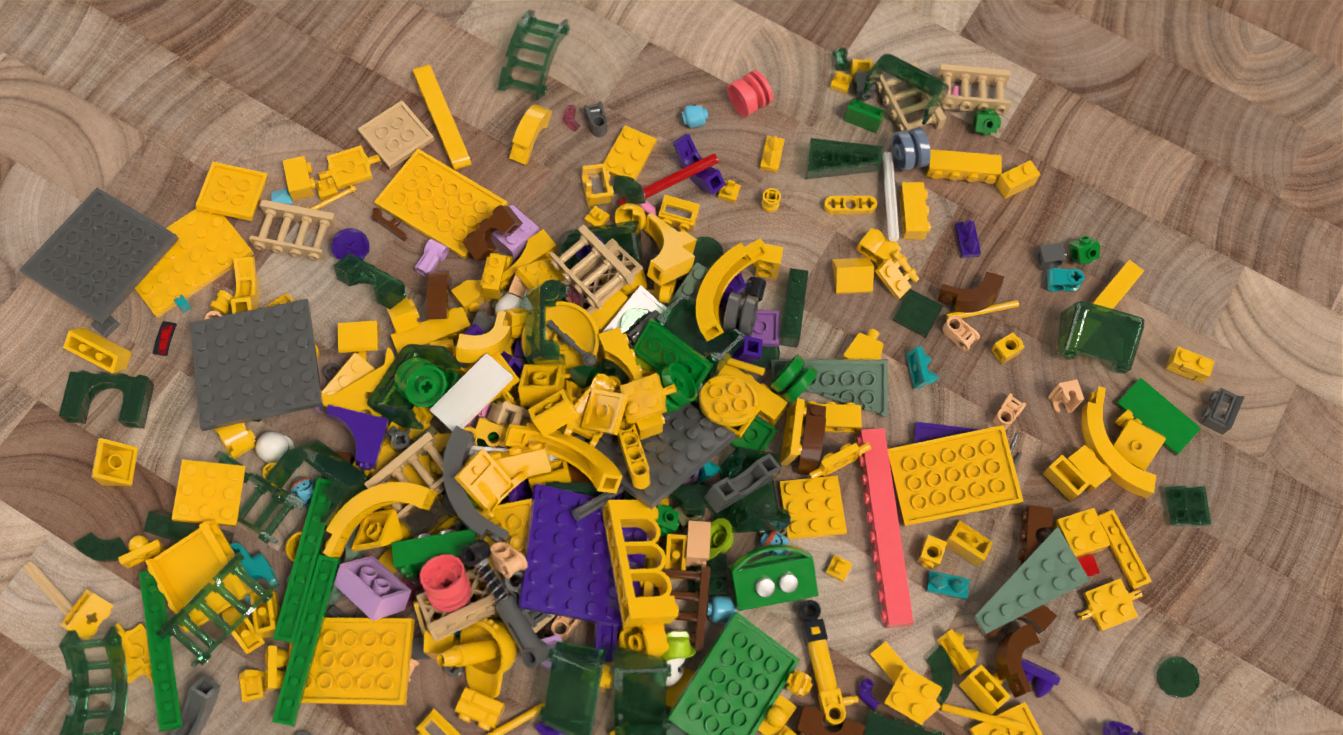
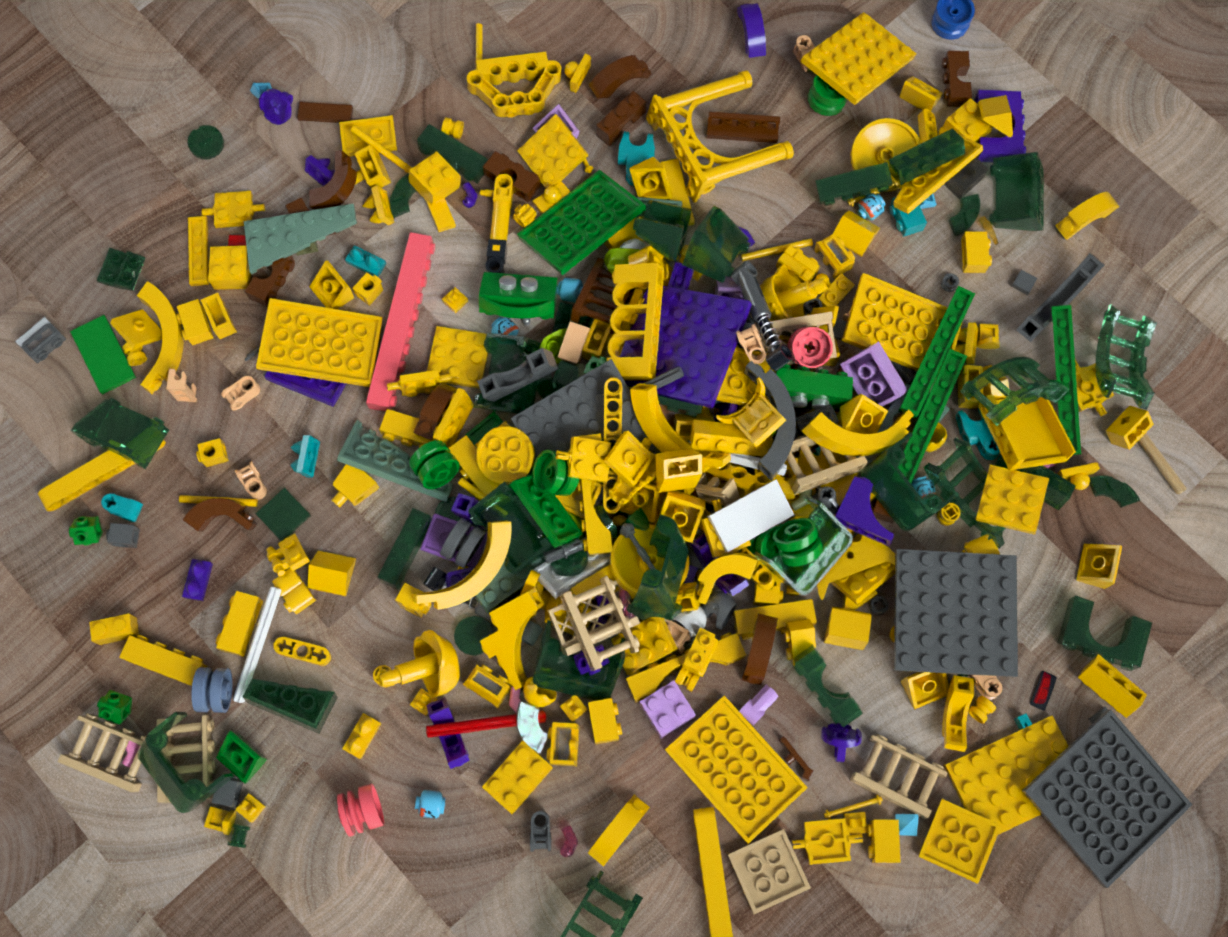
camera: 160 degrees left, 5 degrees up
(272, 446) = (946, 538): white helmet -> none
(433, 691) = (836, 291): none -> yellow plate
(480, 242) = (677, 705): reddish brown arch -> none
(566, 210) = (604, 721): none -> yellow brick
(728, 215) = (434, 663): none -> yellow piece
(1189, 364) = (47, 389): yellow brick -> none

